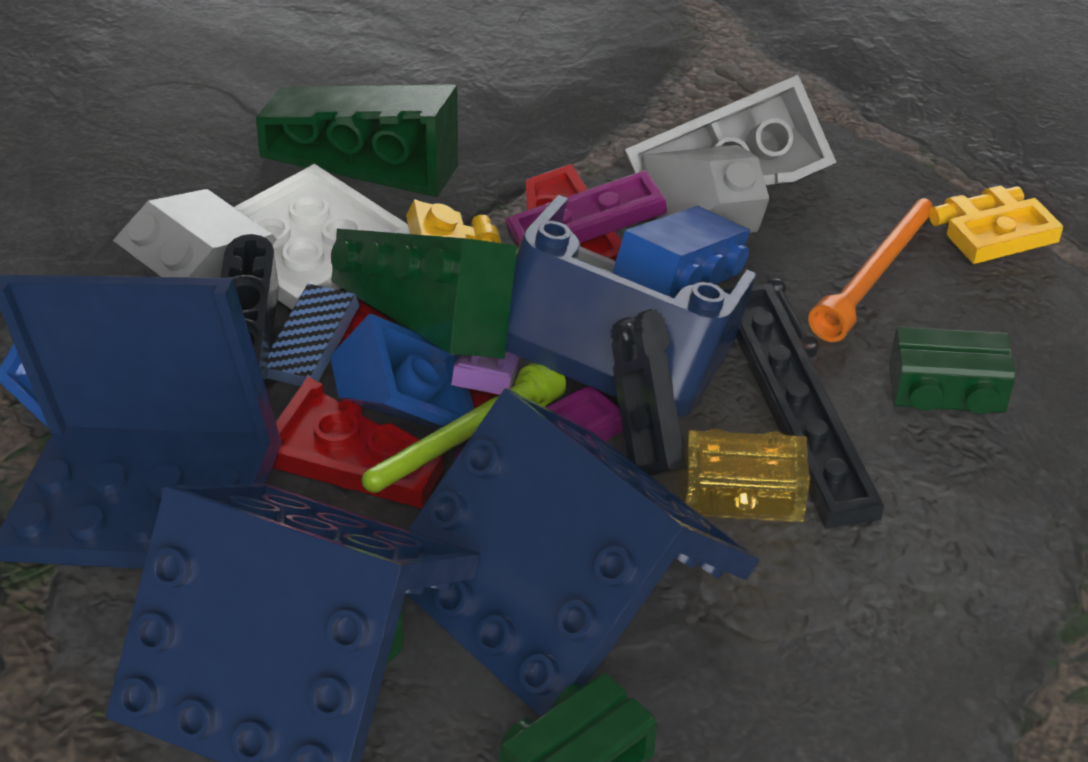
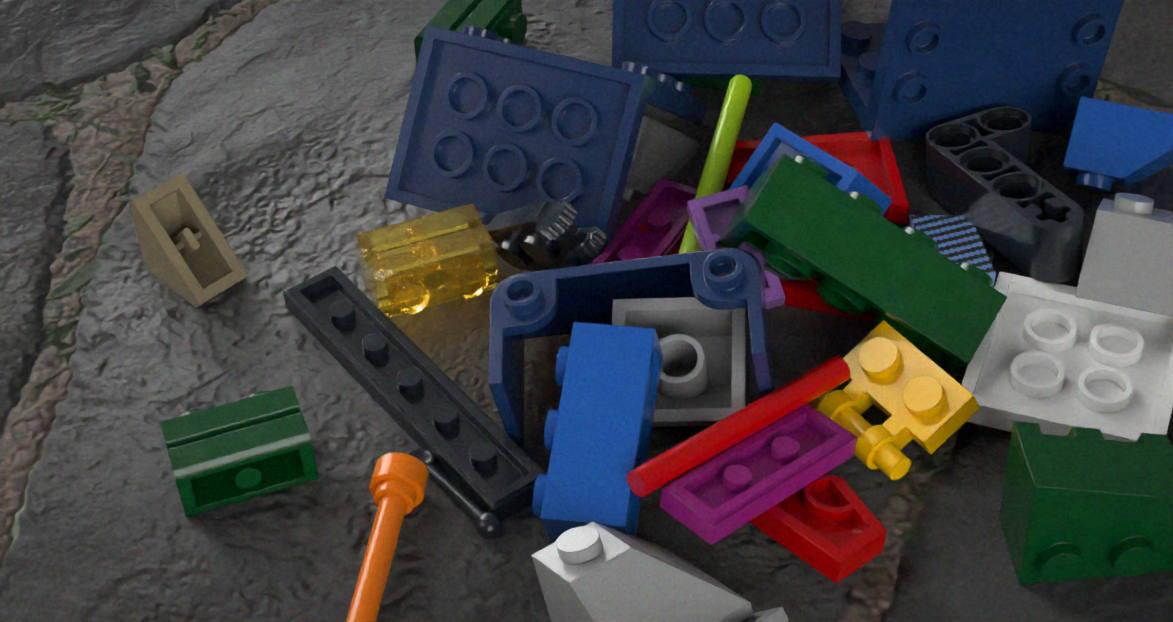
camera: 160 degrees right, 0 degrees up
(608, 217) = (737, 427): none -> red bar
(974, 576) = (184, 242): none -> dark tan slope

